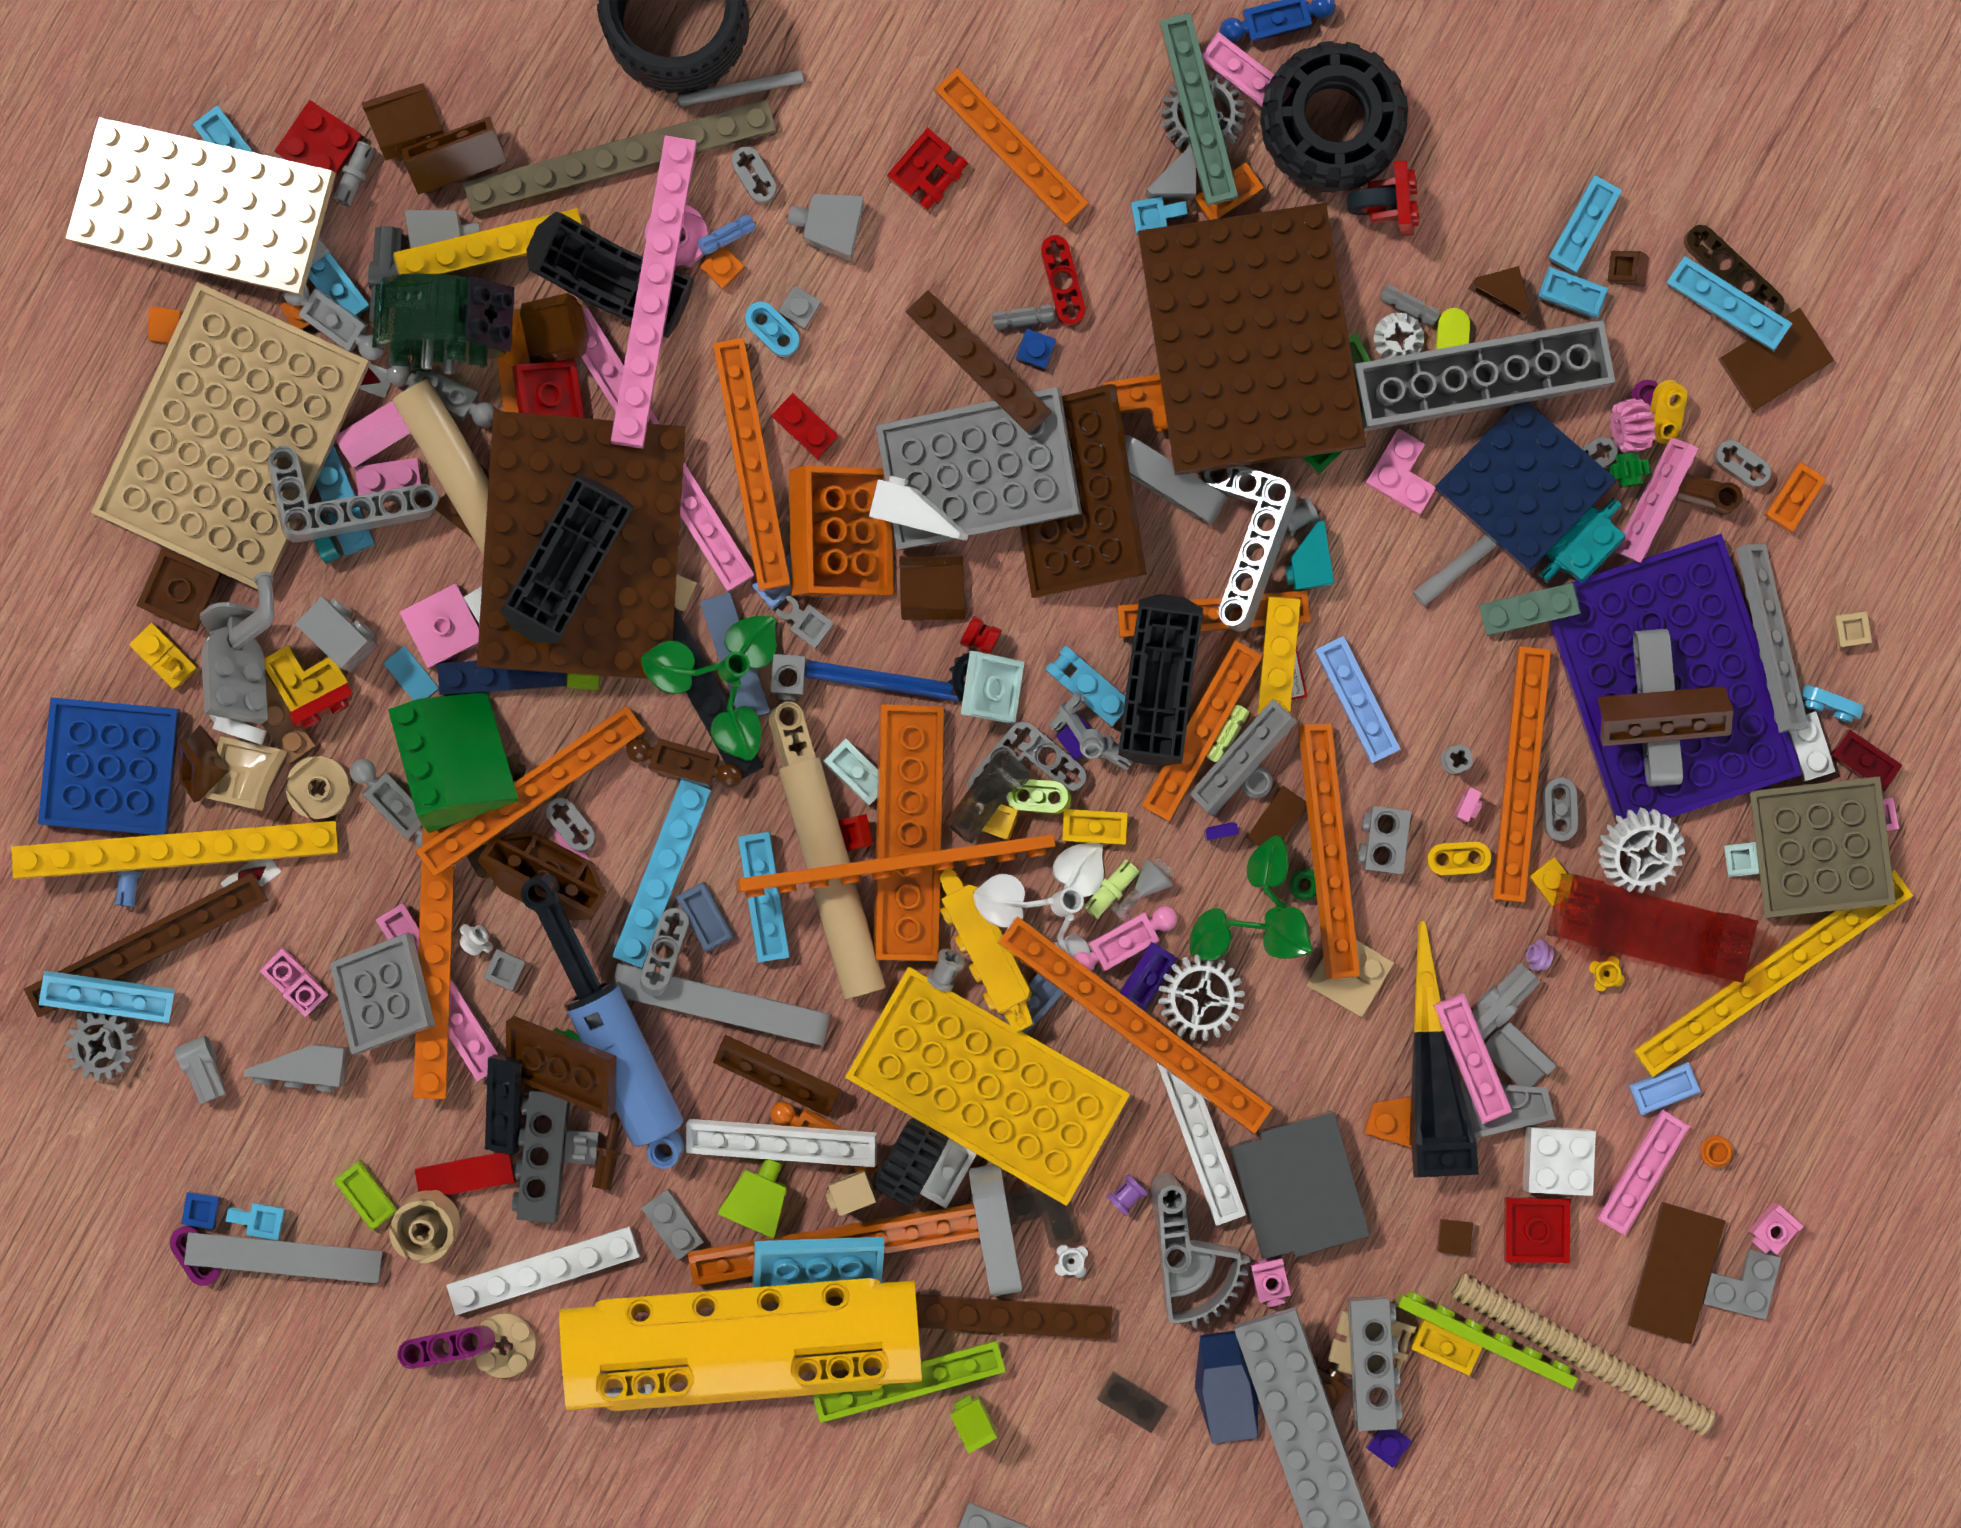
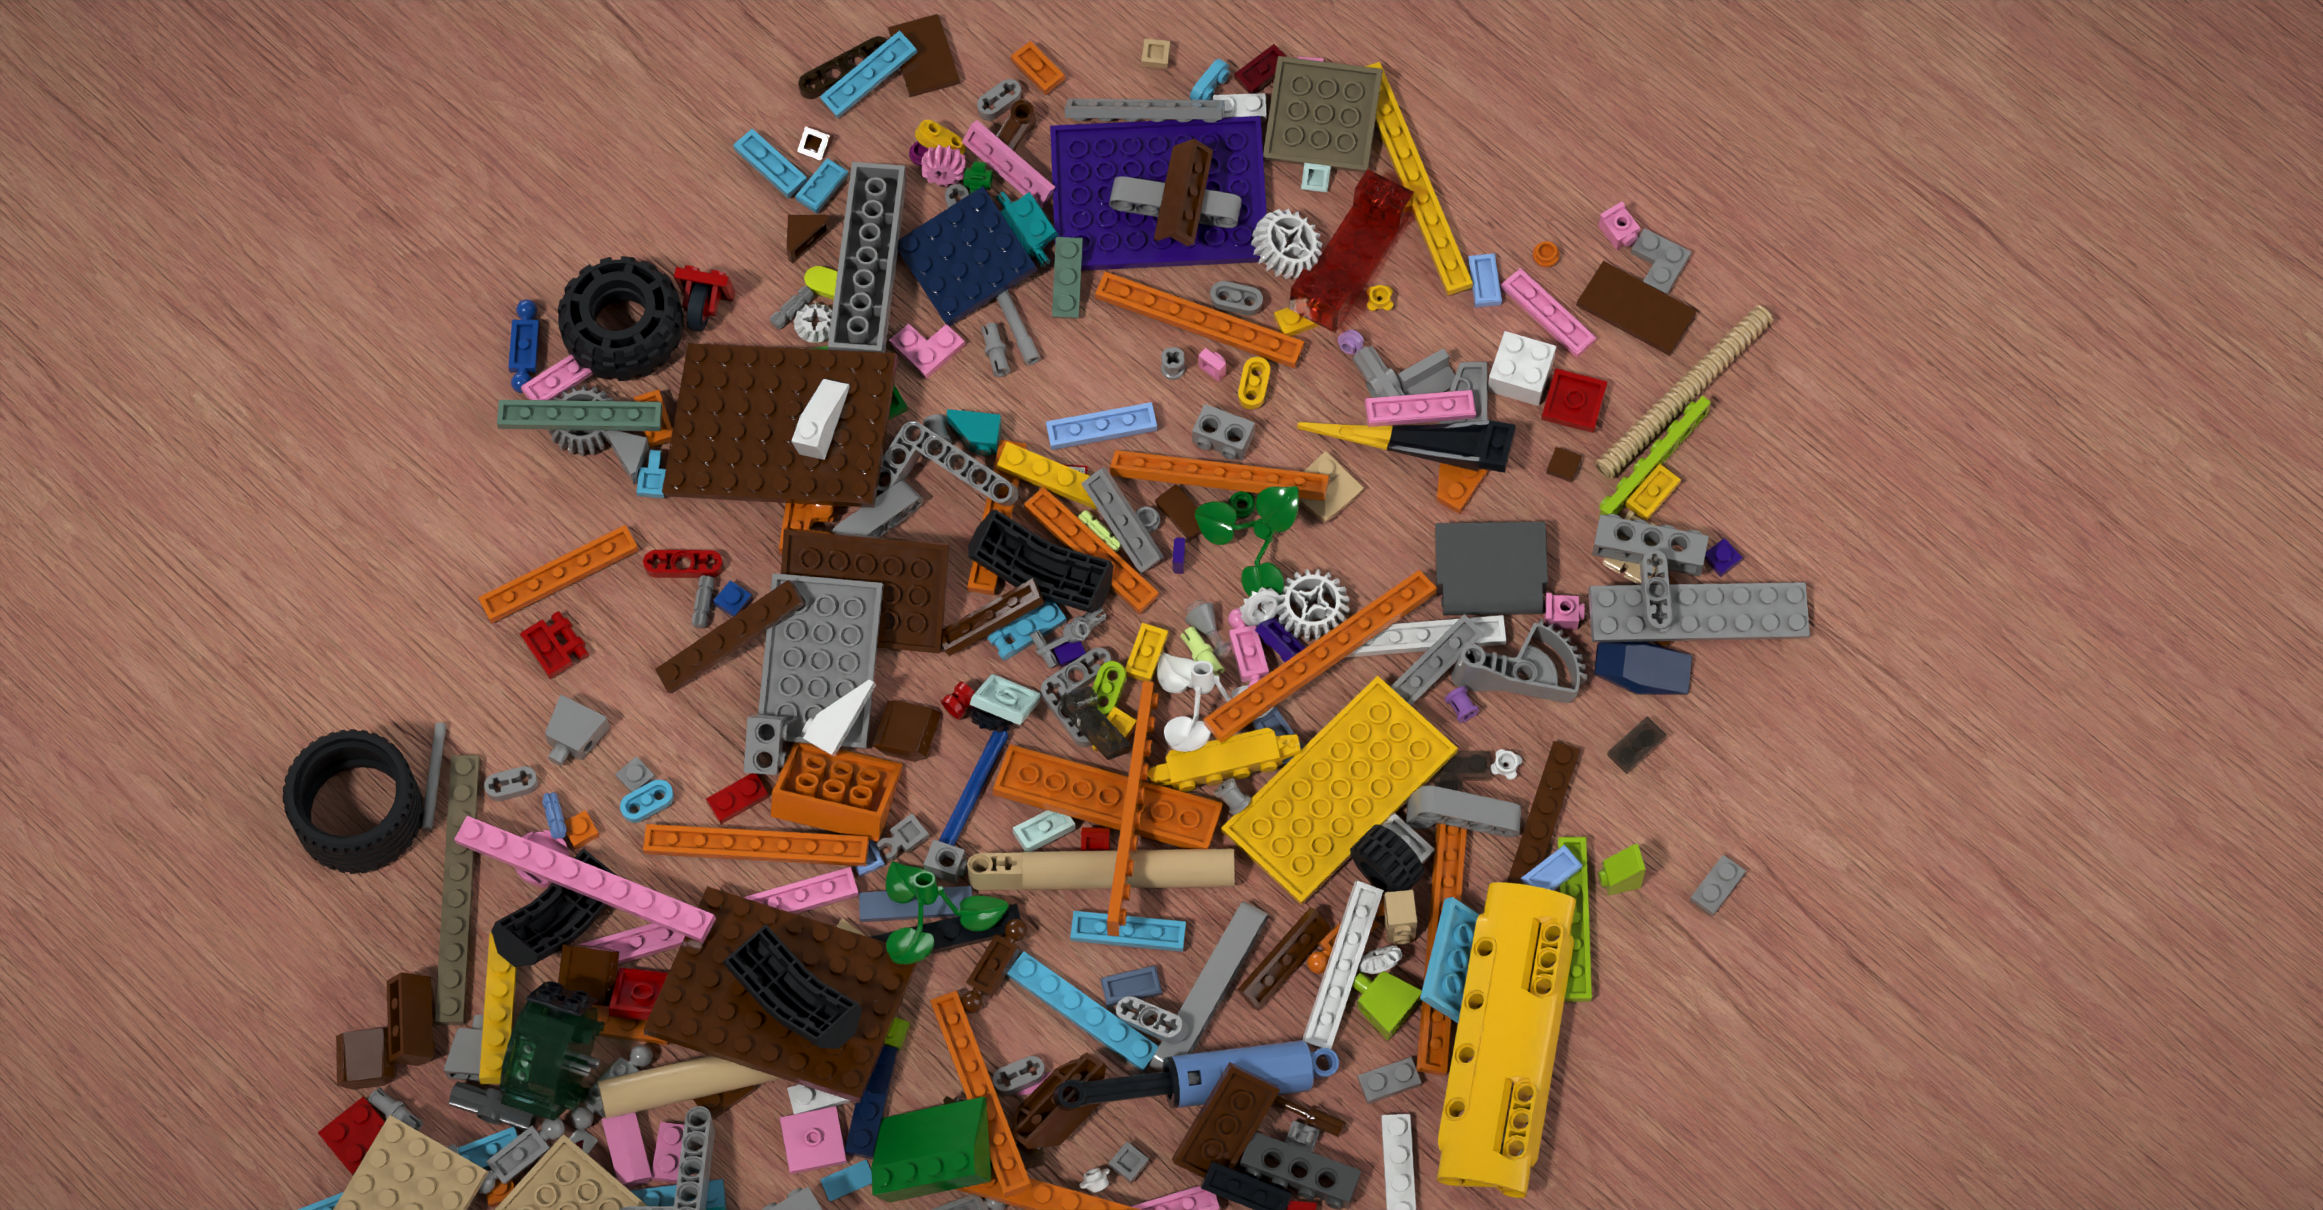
camera: 70 degrees left, 20 degrees down
(791, 1178) = (1380, 959): none -> white gear
(866, 435) = (757, 743): none -> light grey brick
(950, 1345) = (1553, 870): none -> light blue tile
(1084, 644) = (991, 617): none -> reddish brown plate
(1167, 1154) = (1436, 660): none -> light grey plate
(1179, 940) = (1269, 601): none -> white gear
(1260, 383) = (820, 419): none -> white slope
(1334, 1386) = (1645, 571): none -> light grey beam
(1419, 552) = (995, 349): none -> light grey pin

